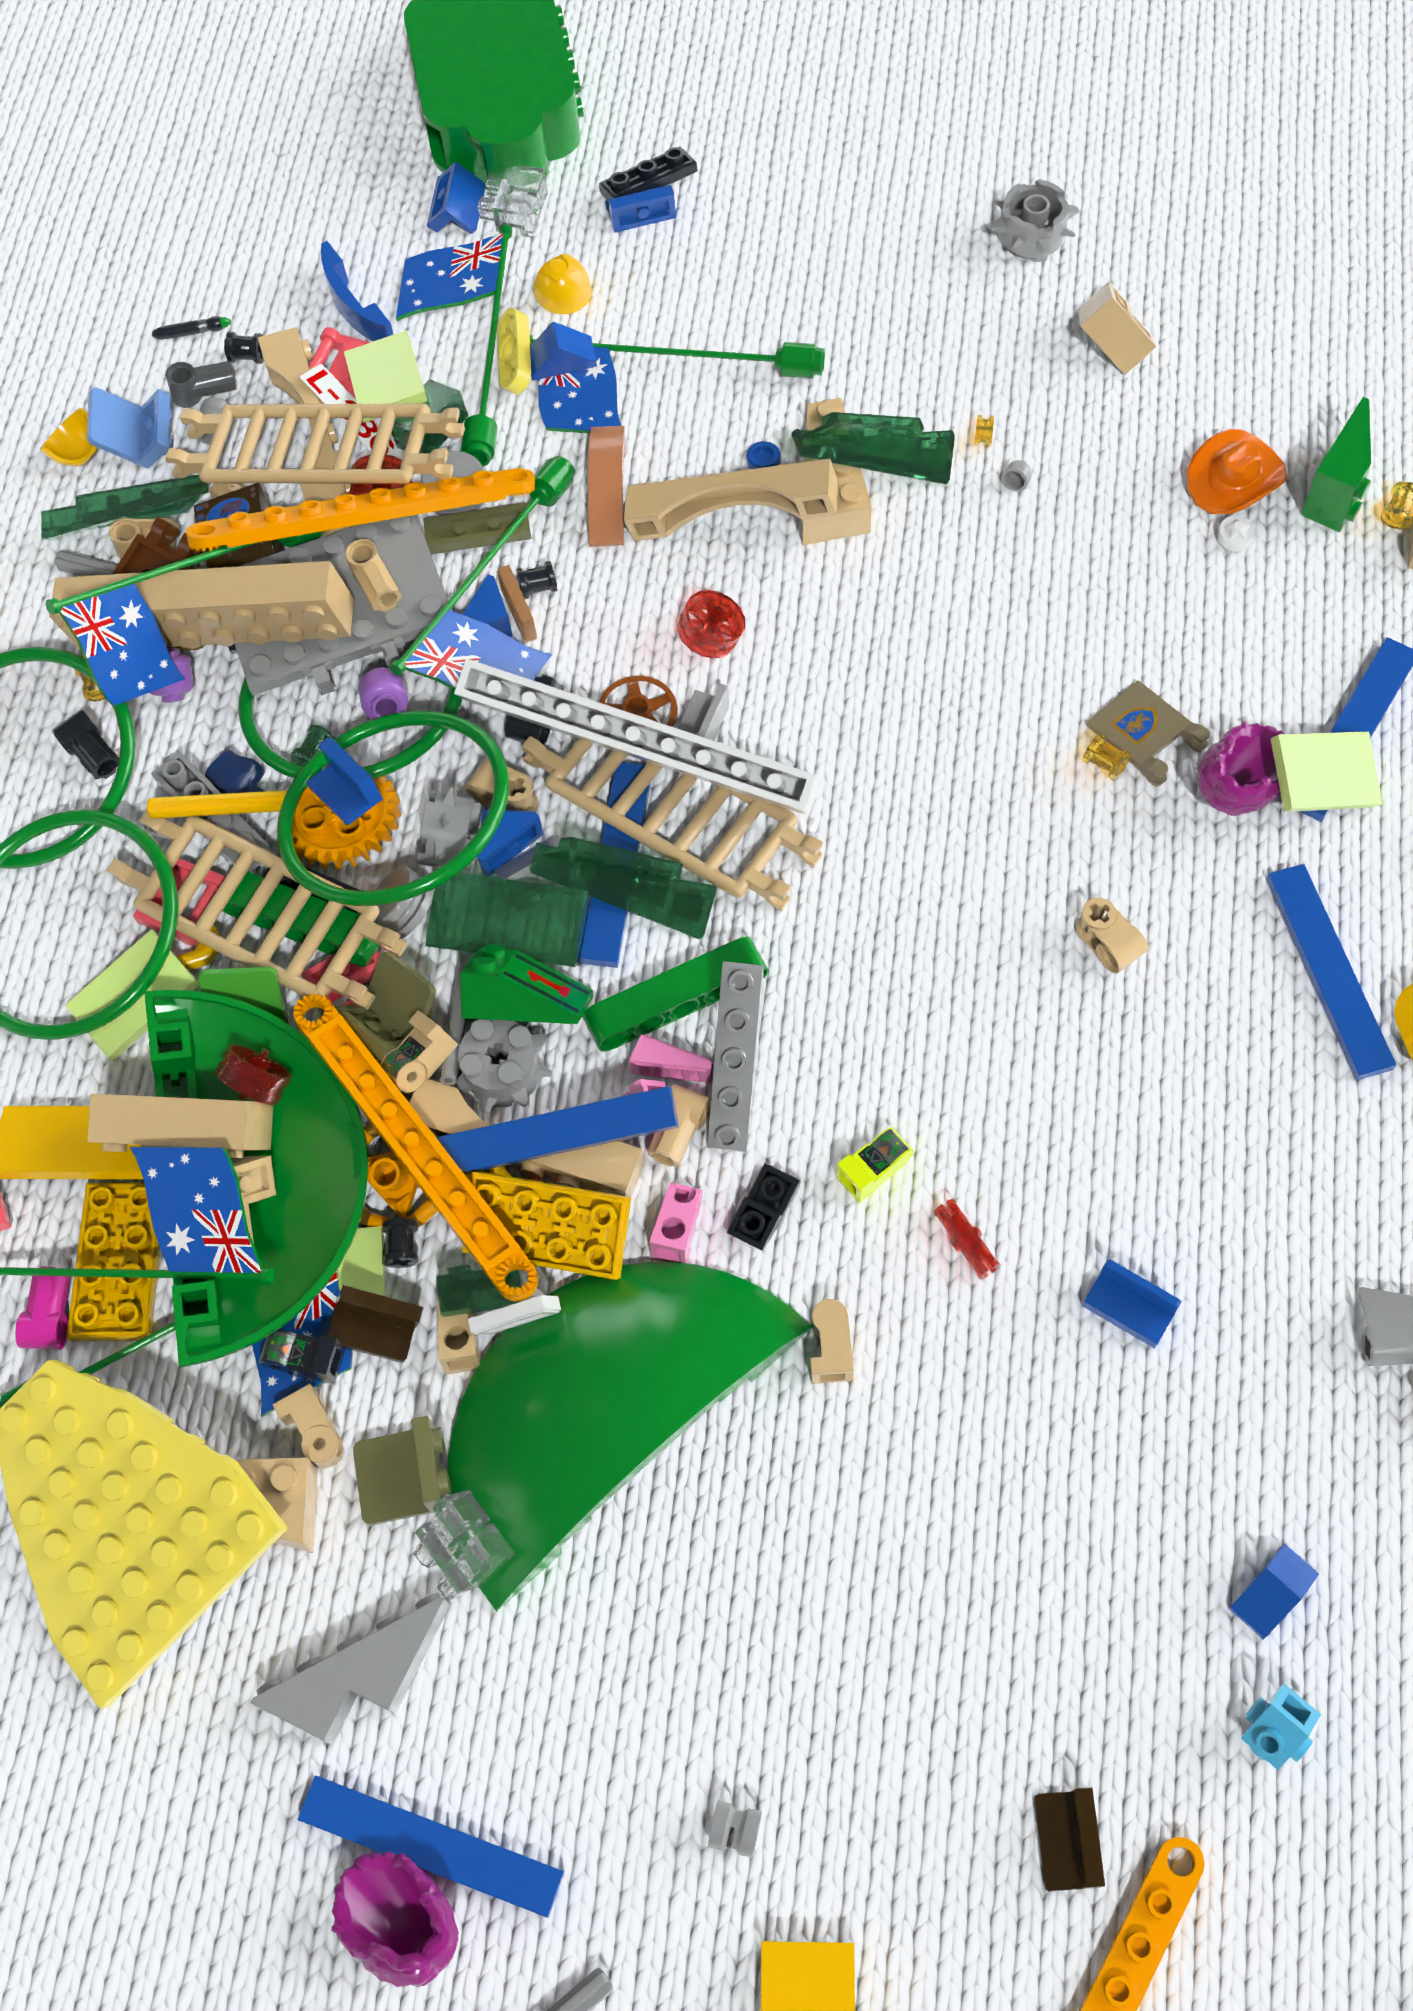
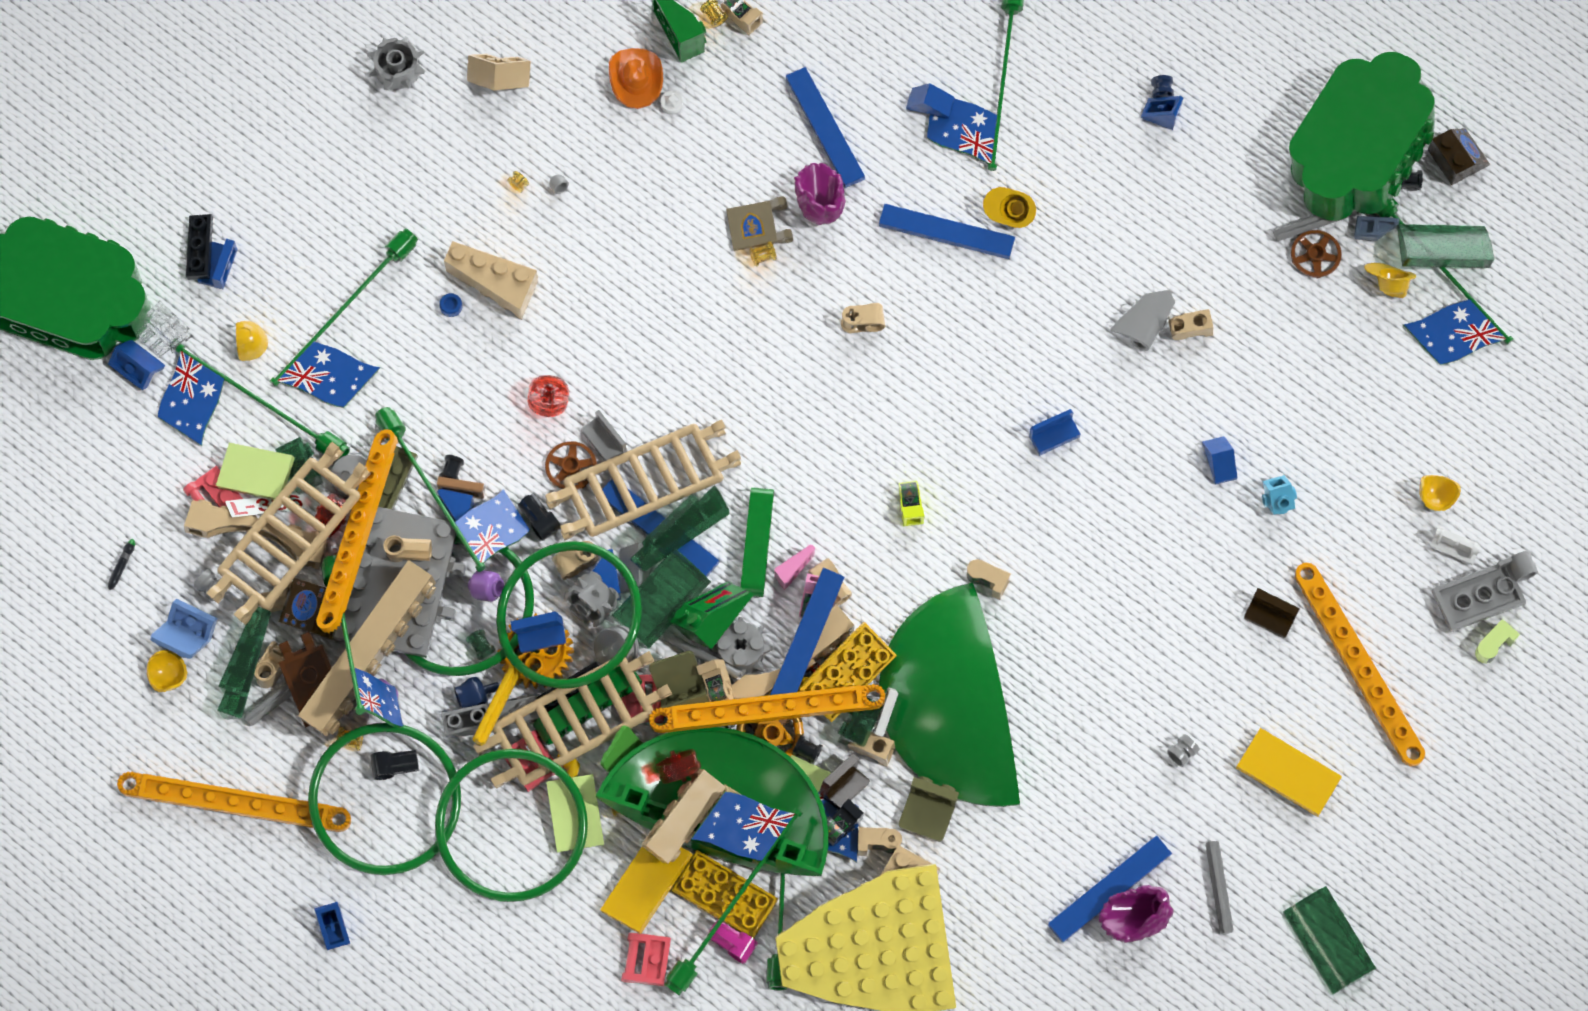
camera: 65 degrees left, 5 degrees up
(191, 383) = (173, 576): dark grey piece -> none
(233, 348) = (164, 540): black bush -> none
(368, 320) = (172, 466): blue slope -> none
(371, 1667) = (1015, 872): light grey slope -> none
(461, 1545) = (992, 803): clear hips -> none
(514, 351) = (292, 406): light yellow beam -> none
(561, 352) = (302, 369): blue slope -> none
(605, 486) = (411, 394): nougat slope -> none
(638, 737) = (604, 472): white brick -> none
(664, 506) = (505, 299): tan arch -> none
(676, 1224) = (882, 612): bright pink leg -> none
(736, 1055) = (816, 530): light grey slope -> none
(764, 1207) = (898, 568): black slope -> none
(880, 445) = (502, 241): clear green wedge -> none
(967, 1239) = (975, 485): clear red pin -> none
(1326, 771) = (846, 158): yellowish green tile -> none

